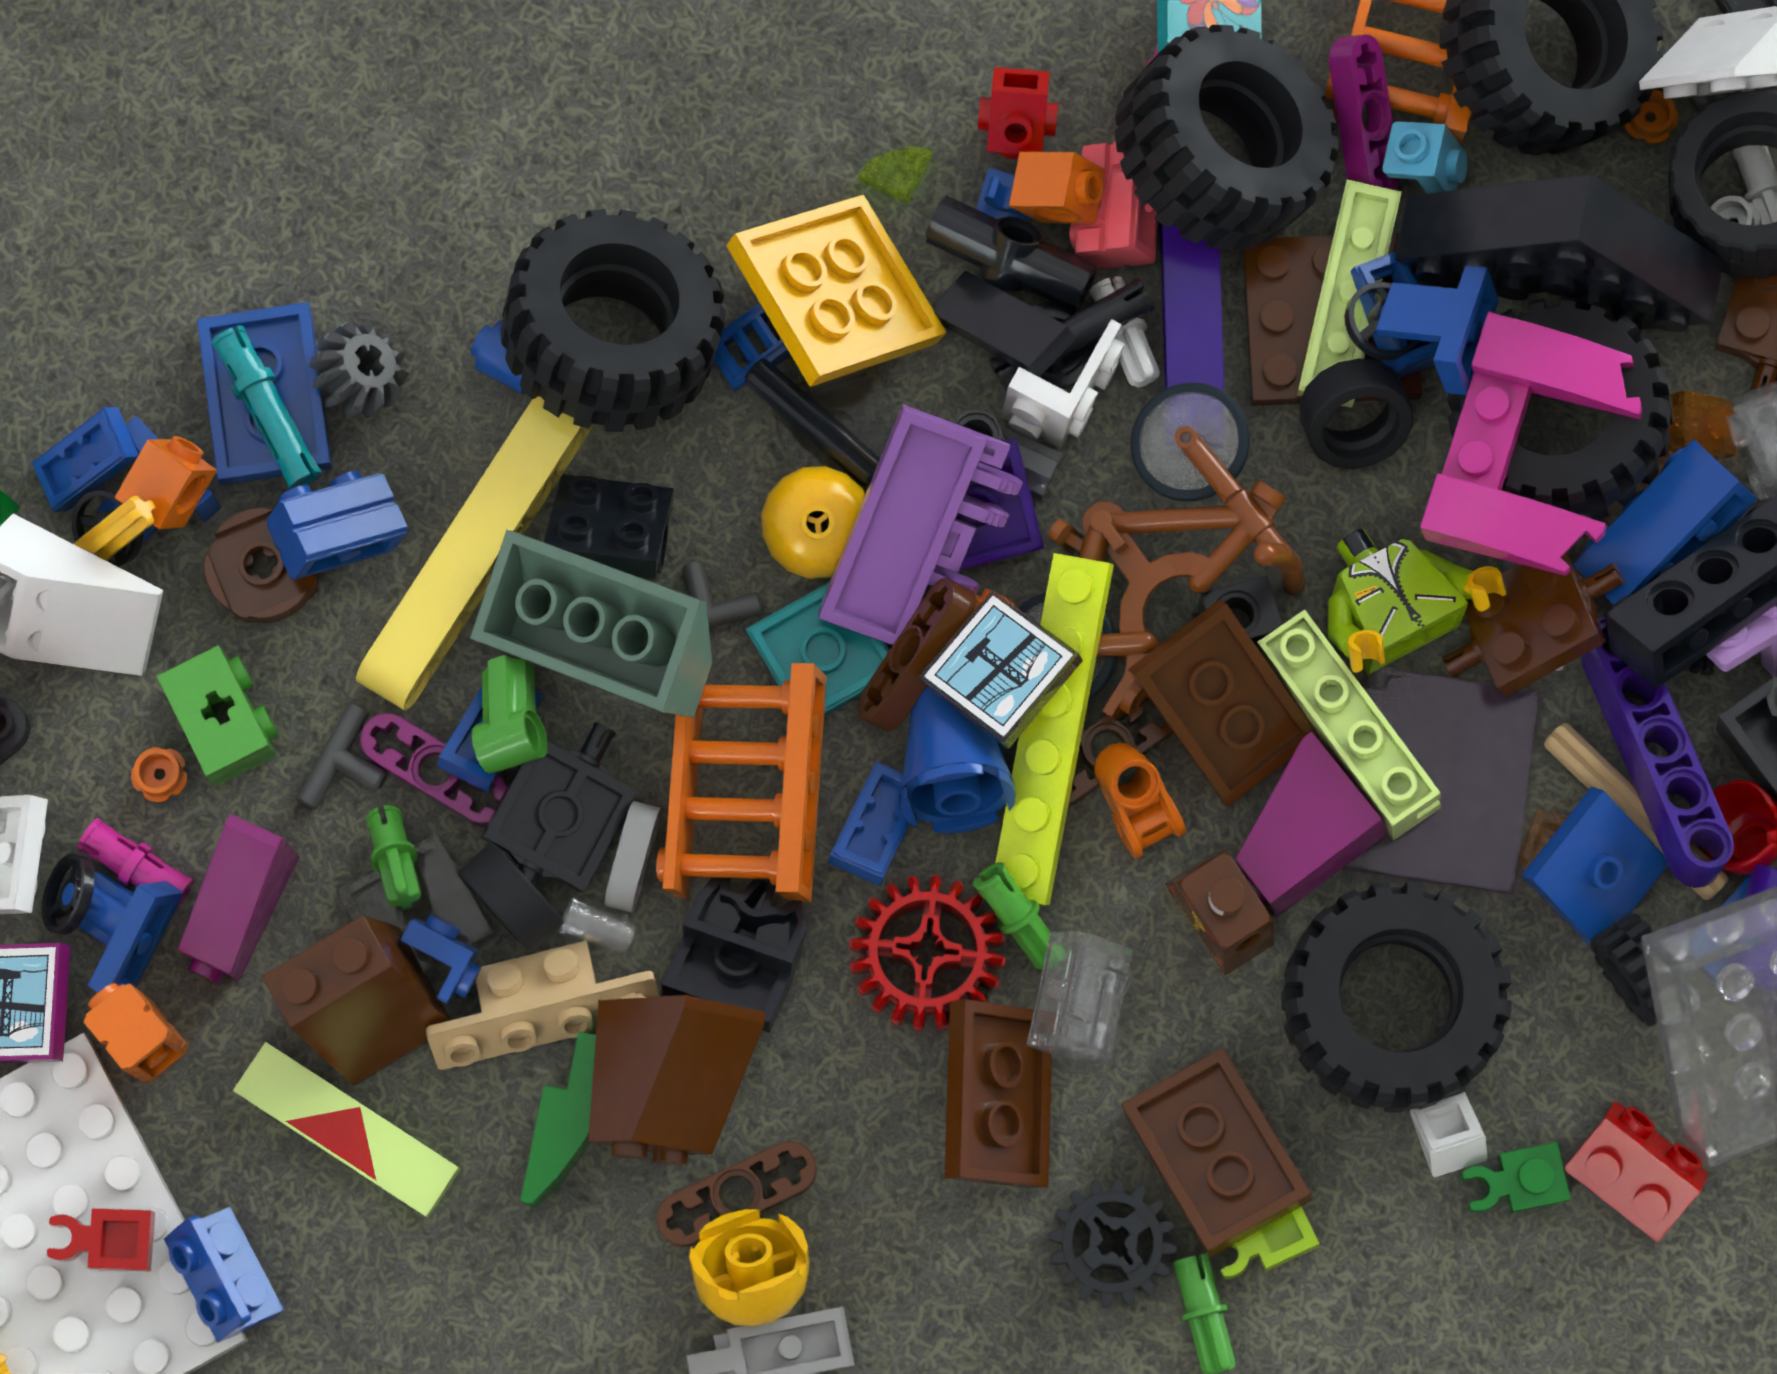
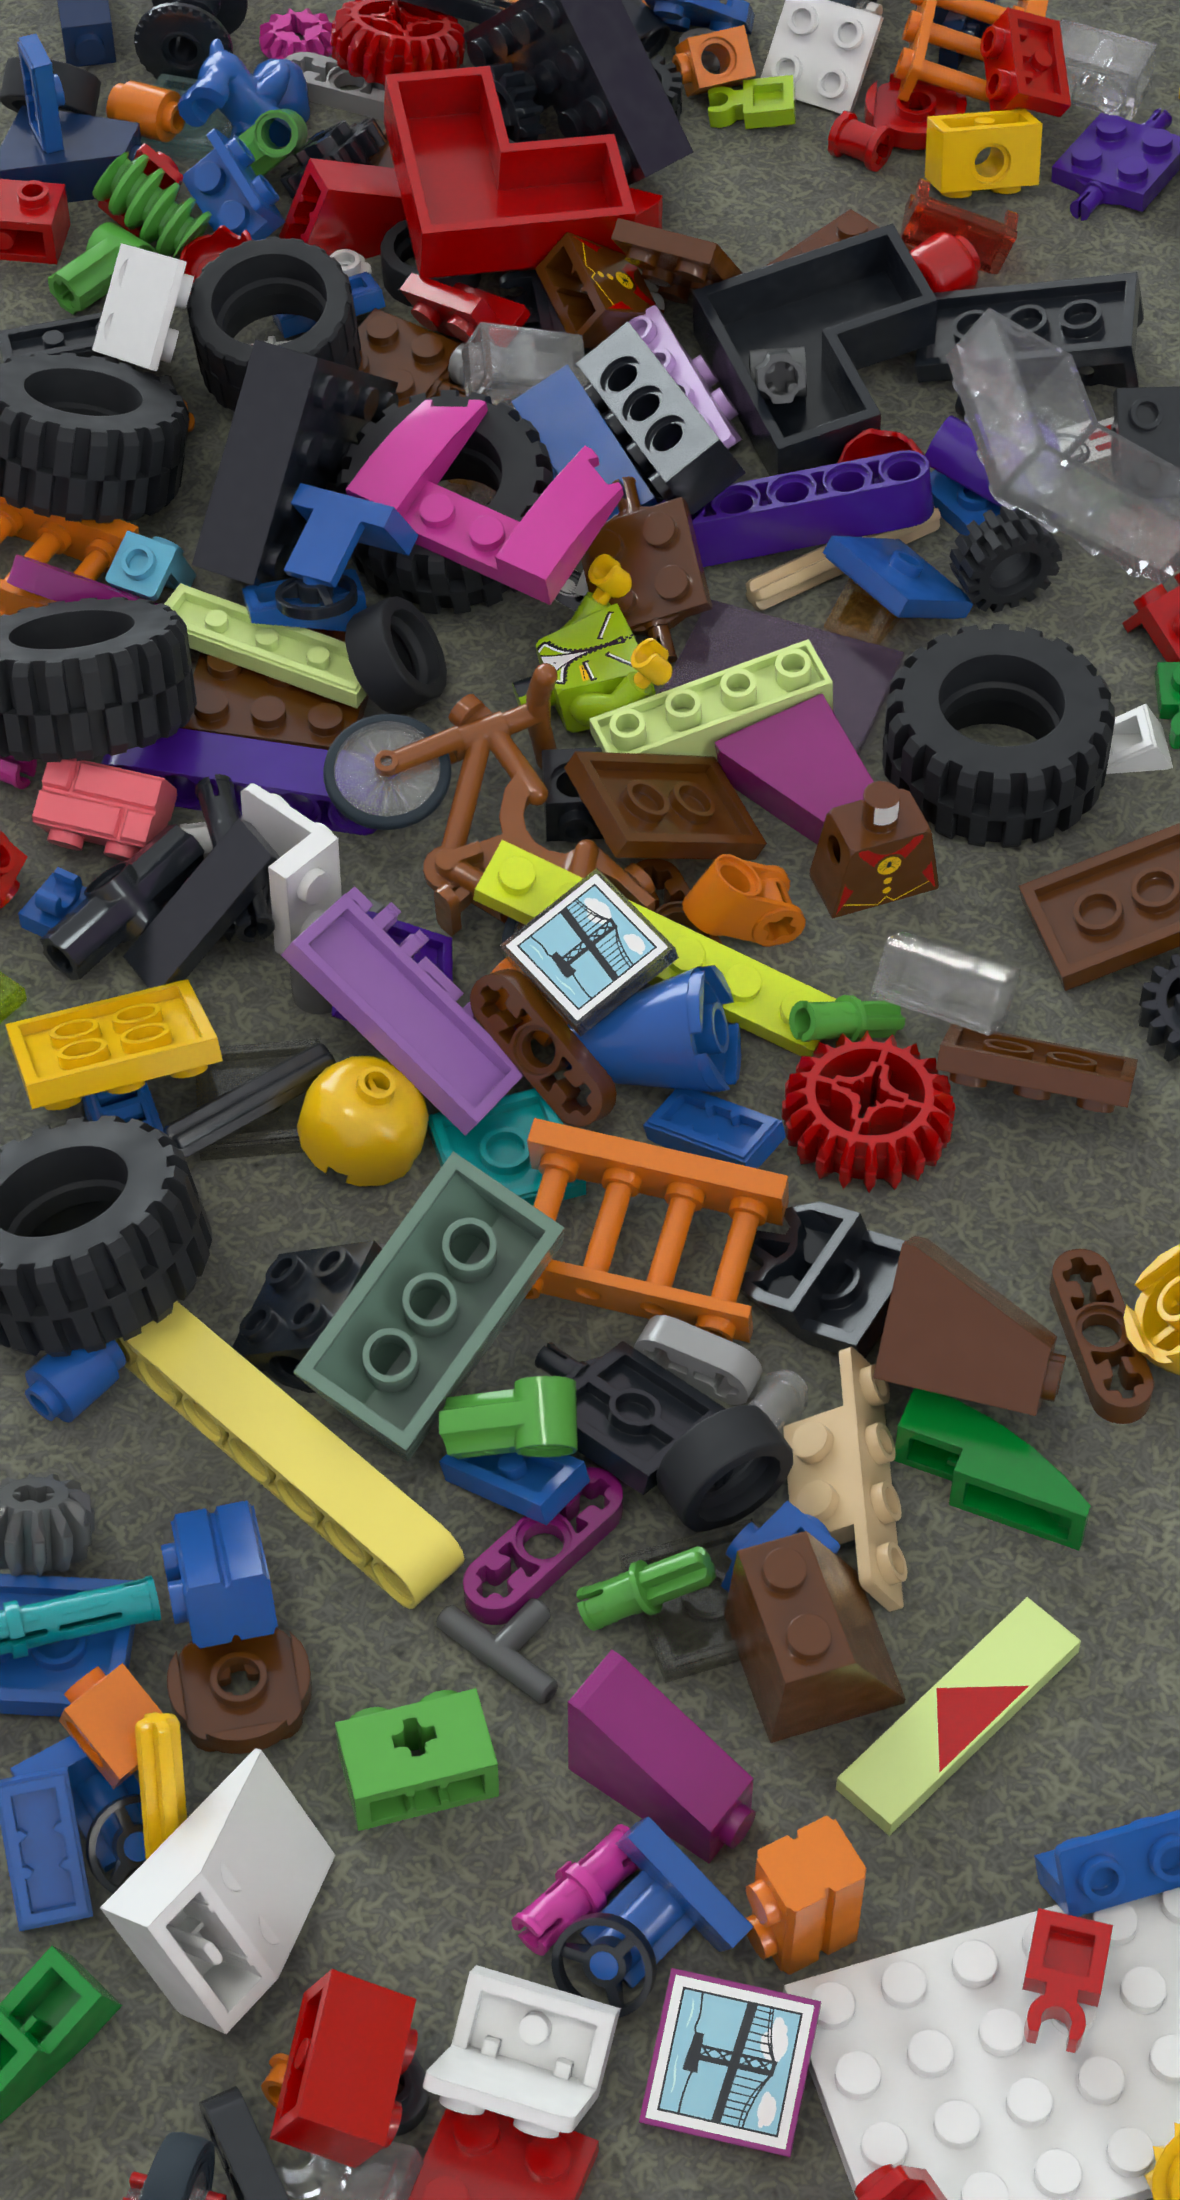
camera: 80 degrees left, 25 degrees down
(159, 759) = (466, 1828): orange plate -> none
(1057, 187) = (74, 830): orange brick -> none

